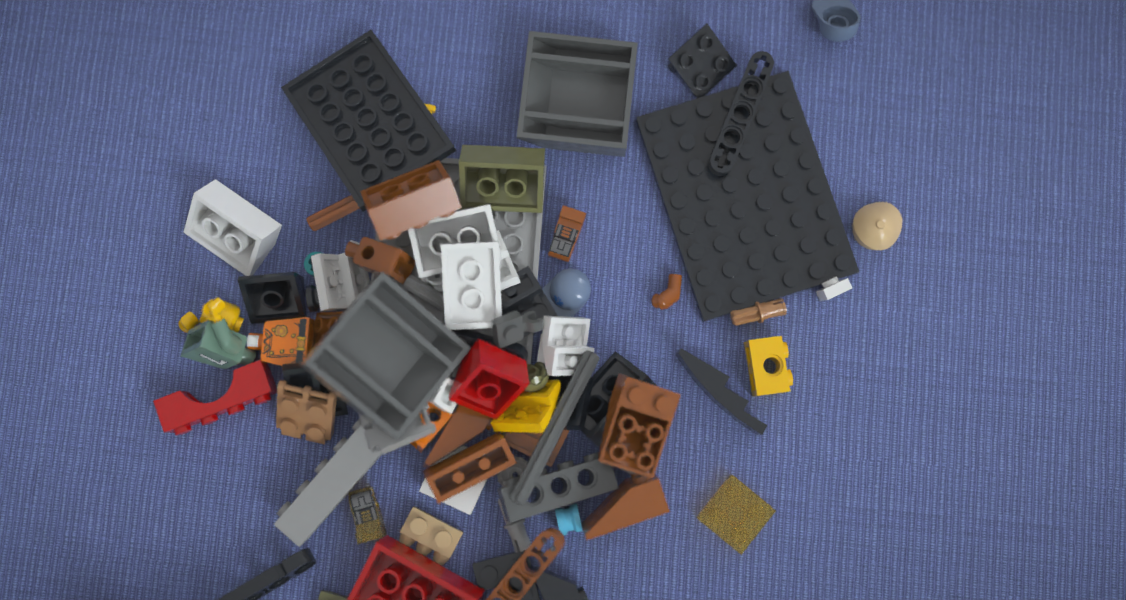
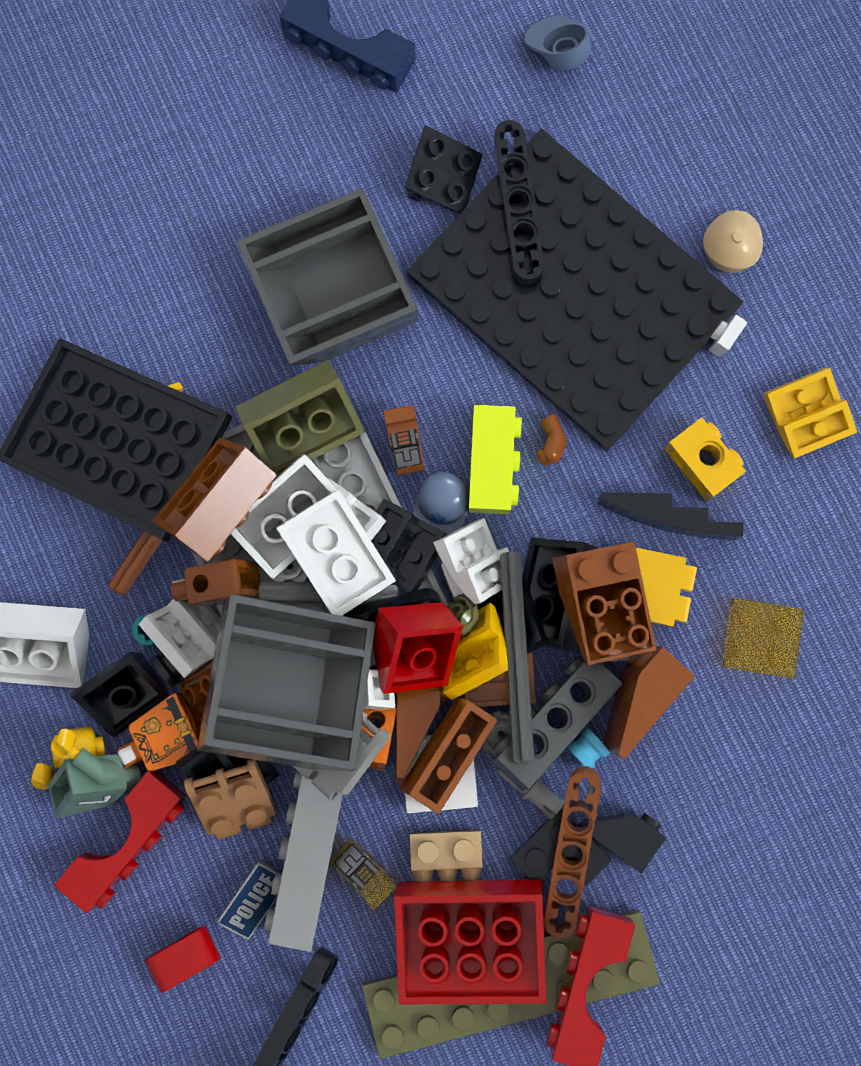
camera: 20 degrees left, 0 degrees up
(211, 501) = (182, 959): none -> red beam
(278, 489) = (250, 901): none -> slope
(511, 326) = (405, 574): dark grey plate -> none
(620, 282) = (494, 459): none -> neon yellow brick
(685, 435) = (663, 580): none -> yellow plate
(759, 312) = (661, 406): medium nougat axle -> none
(861, 376) = (810, 412): none -> yellow slope

